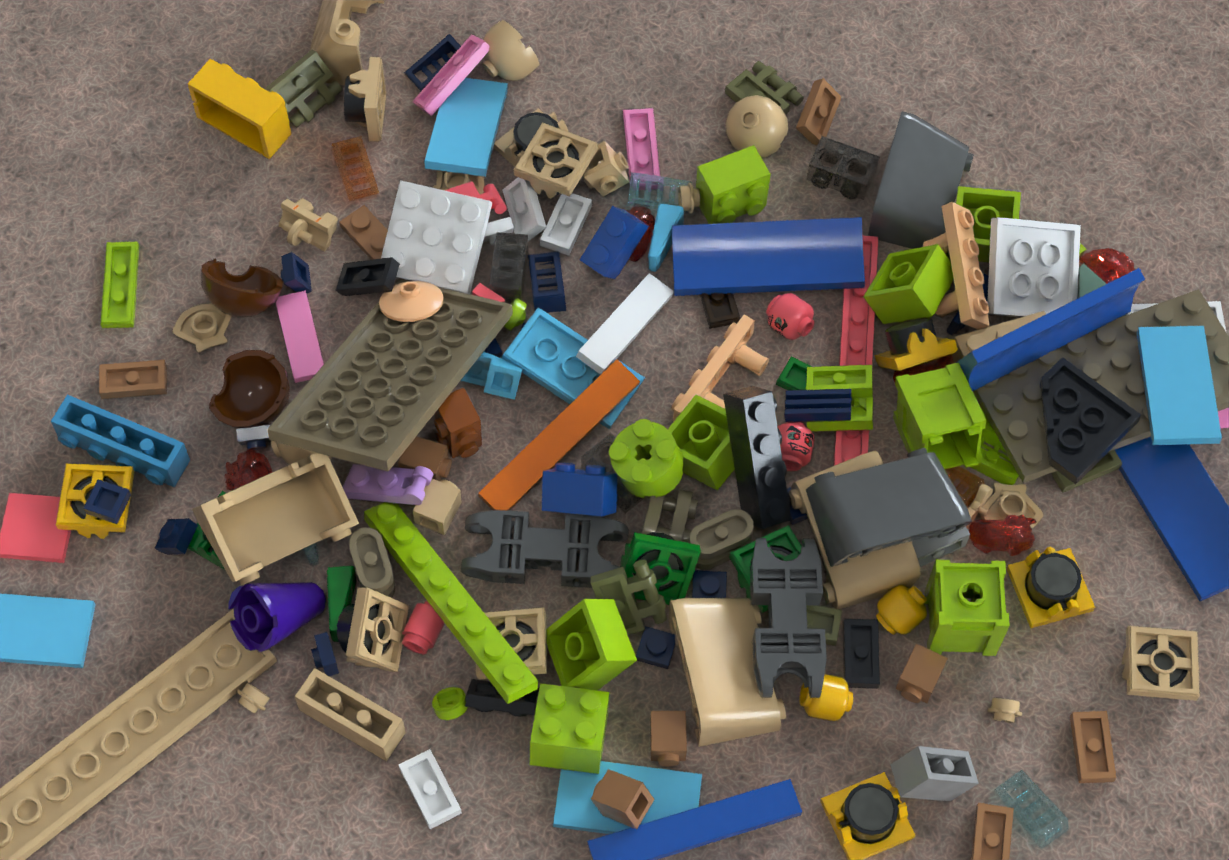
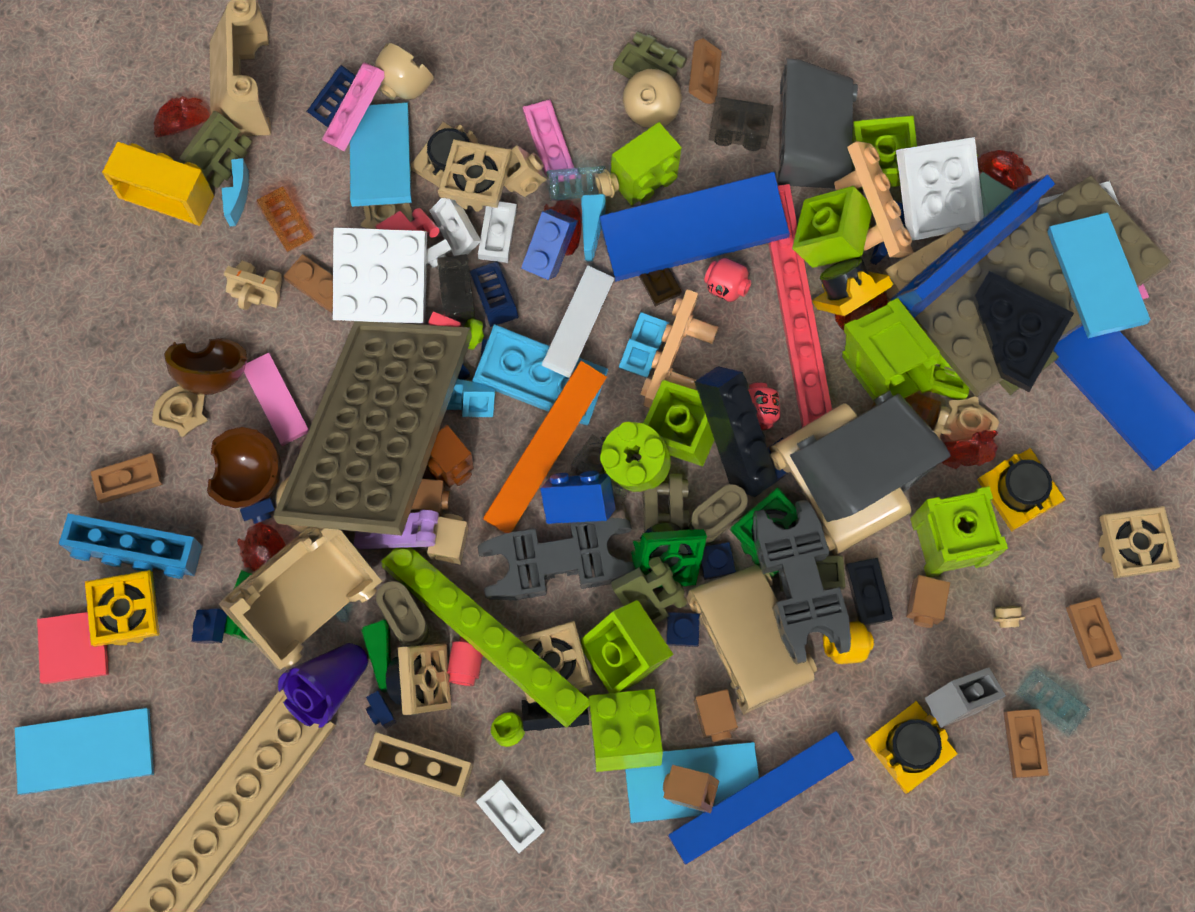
camera: 15 degrees left, 10 degrees up
(107, 501) = (135, 613): dark blue plate -> none
(120, 285) = (88, 384): lime tile -> none
(252, 698) = (323, 767): tan plate -> none
(276, 52) = (179, 116): none -> clear red hat
(295, 273) = (255, 338): dark blue plate -> none
(312, 137) = (236, 196): none -> medium azure slope
(366, 98) = (278, 148): tan piece -> none
(367, 277) = (325, 327): black plate -> none
(411, 301) = (373, 344): light nougat dish -> none
(686, 361) = (643, 345): none -> medium azure slope
(793, 375) = (747, 337): green tile -> none
(824, 405) = (775, 360): dark blue tile -> none
(854, 377) = (793, 351): lime slope -> none
(901, 609) = (897, 544): yellow head -> none

